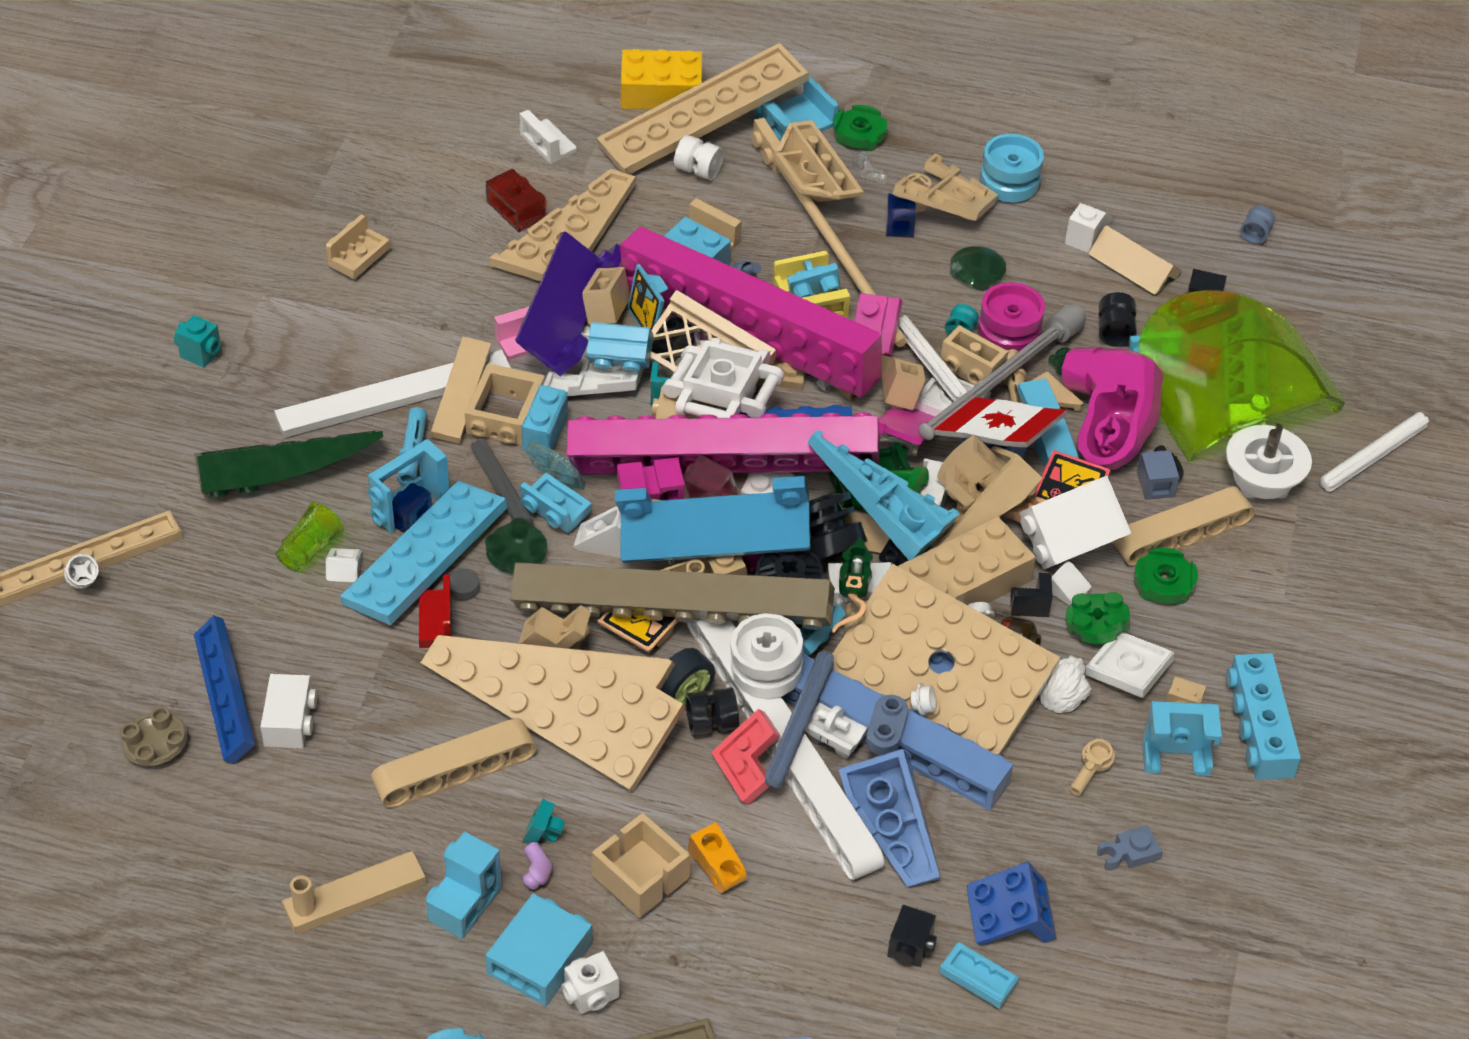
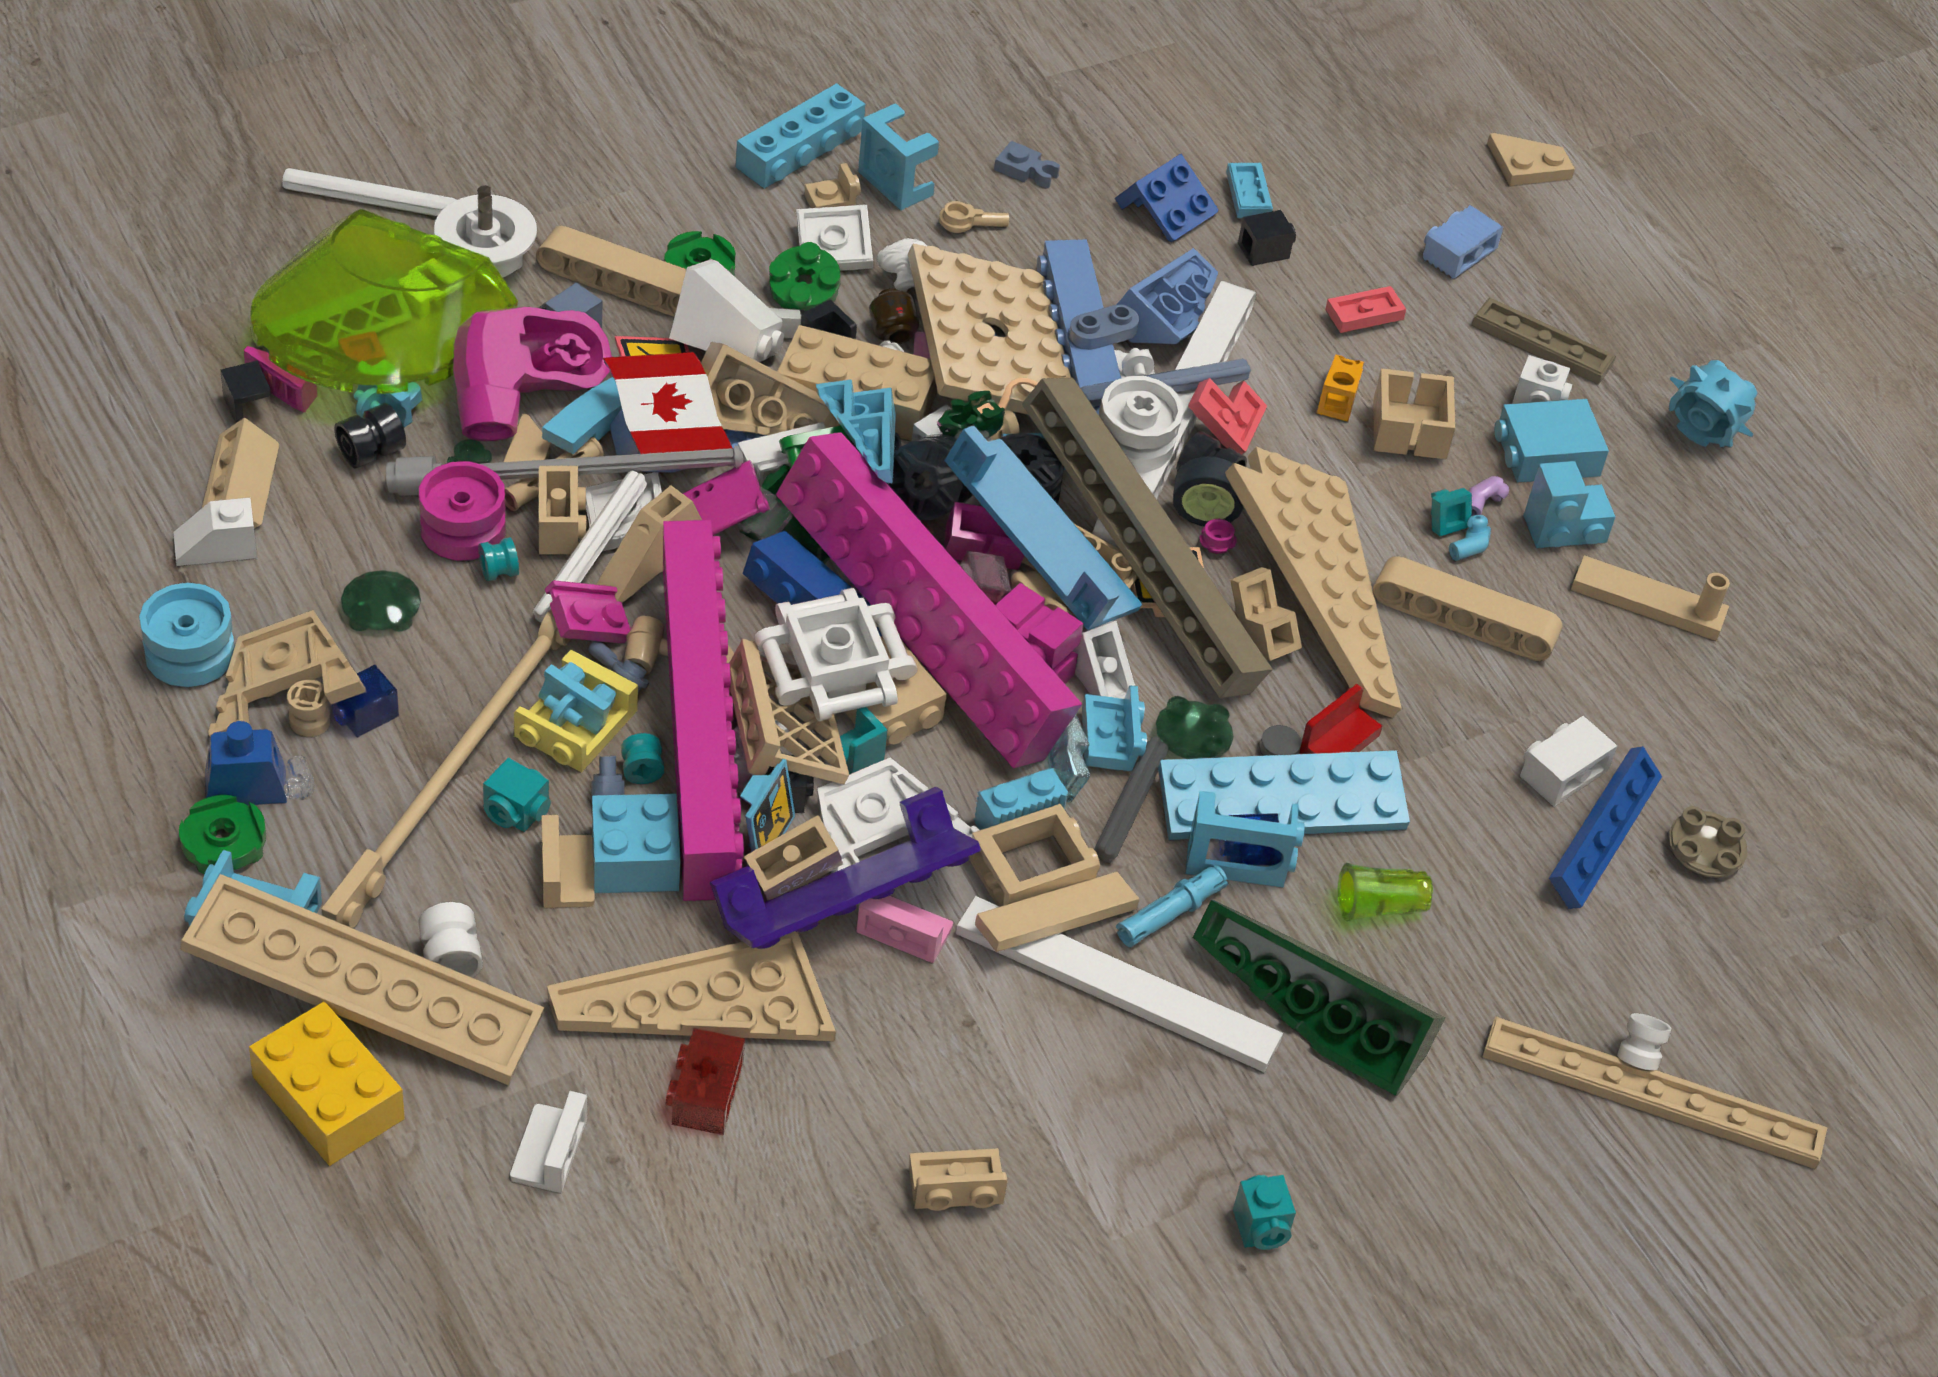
camera: 135 degrees left, 0 degrees up
(343, 565) = (1366, 852): white slope -> none
(503, 824) = (1476, 539): none -> medium azure arm
(619, 346) = (871, 776): medium azure brick -> none
(773, 234) = (516, 795): none -> teal brick
(779, 945) = (1365, 309): none -> coral plate
(814, 164) = (377, 794): tan wedge -> none
(891, 141) = (245, 765): none -> blue torso
(923, 699) = (1051, 315): white plate -> none
(965, 468) = (750, 416): tan brick -> none
(1257, 224) = (81, 399): sand blue wheel -> none

